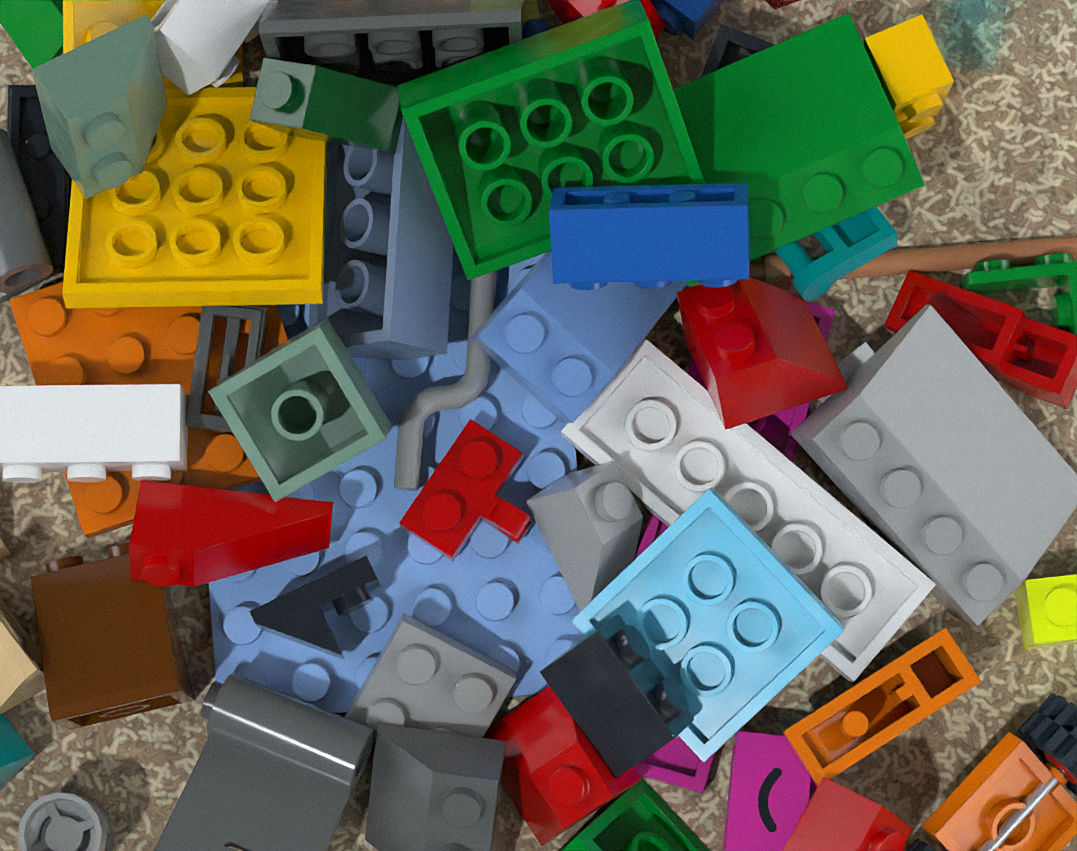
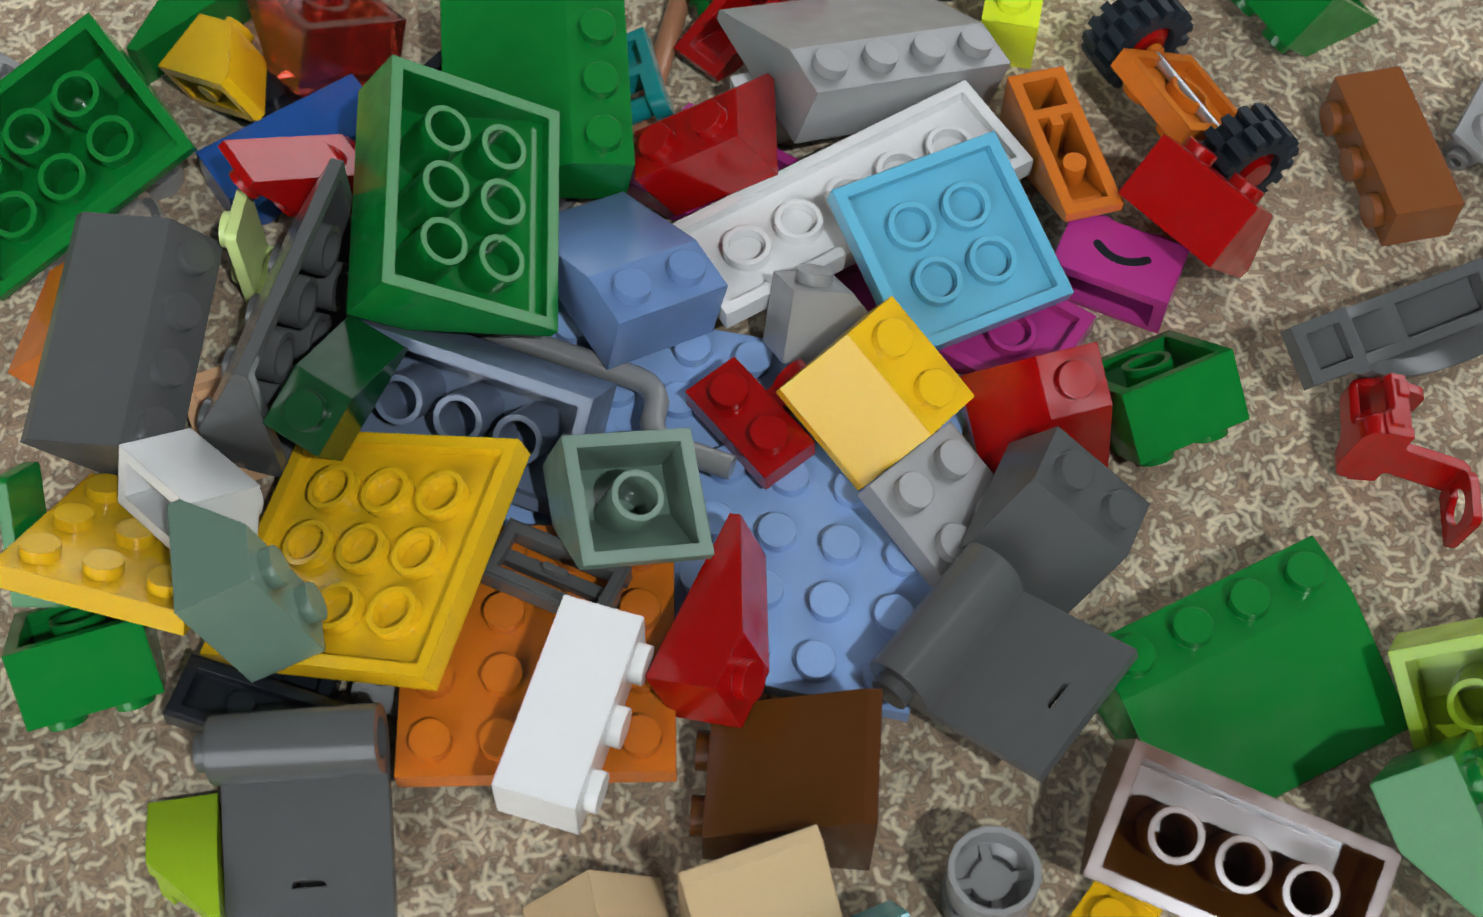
camera: 75 degrees left, 20 degrees down
(301, 612) = (830, 576): black slope -> none
(506, 598) = (875, 393): none -> yellow slope
(618, 695) = (1000, 322): black brick -> none
(650, 235) = (584, 147): blue brick -> none

